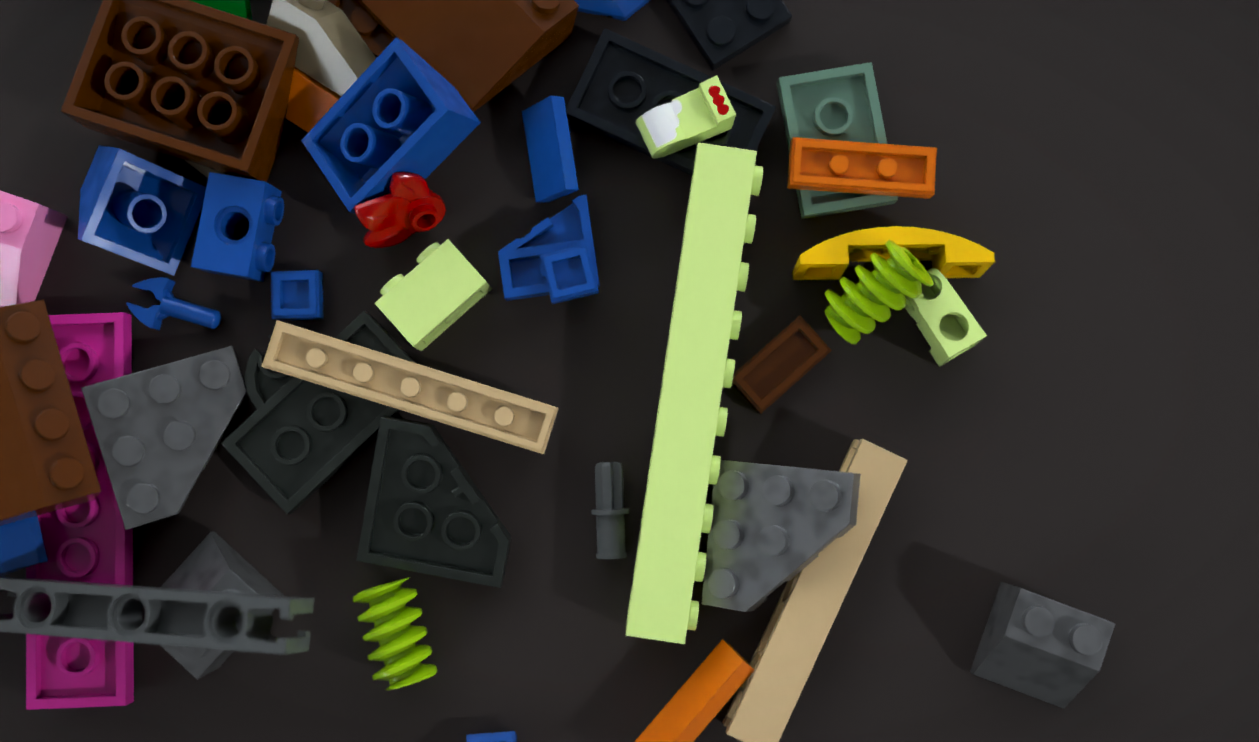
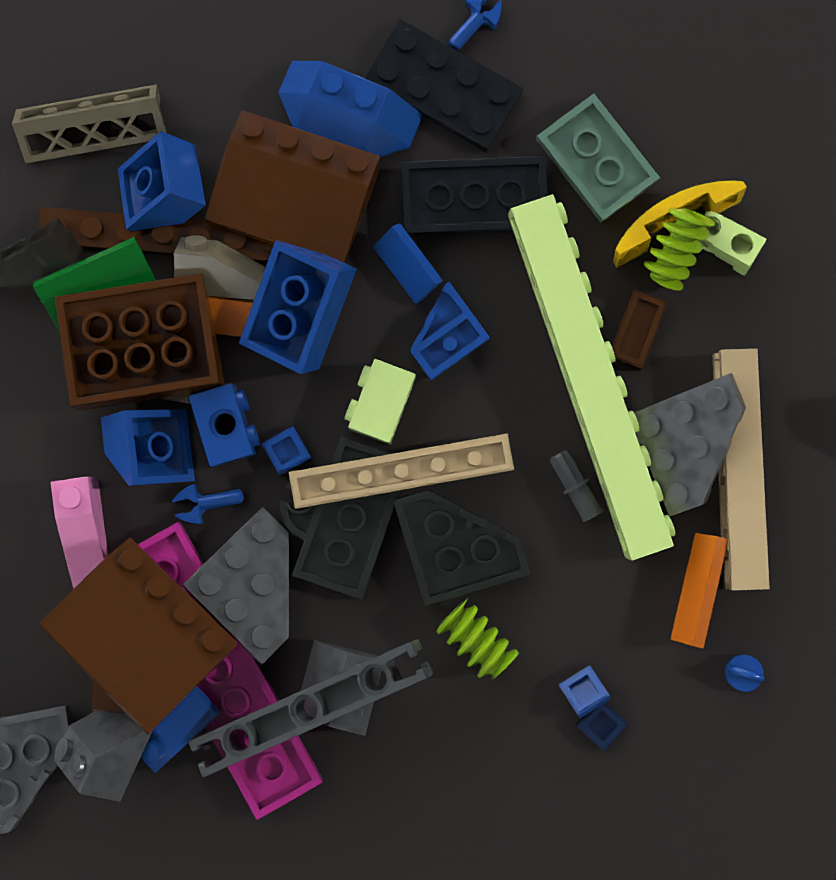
camera: 25 degrees left, 0 degrees up
(398, 215) = (336, 352): red plate -> none
(569, 274) = (467, 340): blue tile -> none
(687, 119) = (493, 195): yellowish green leg -> none
(862, 168) = (625, 168): orange tile -> none

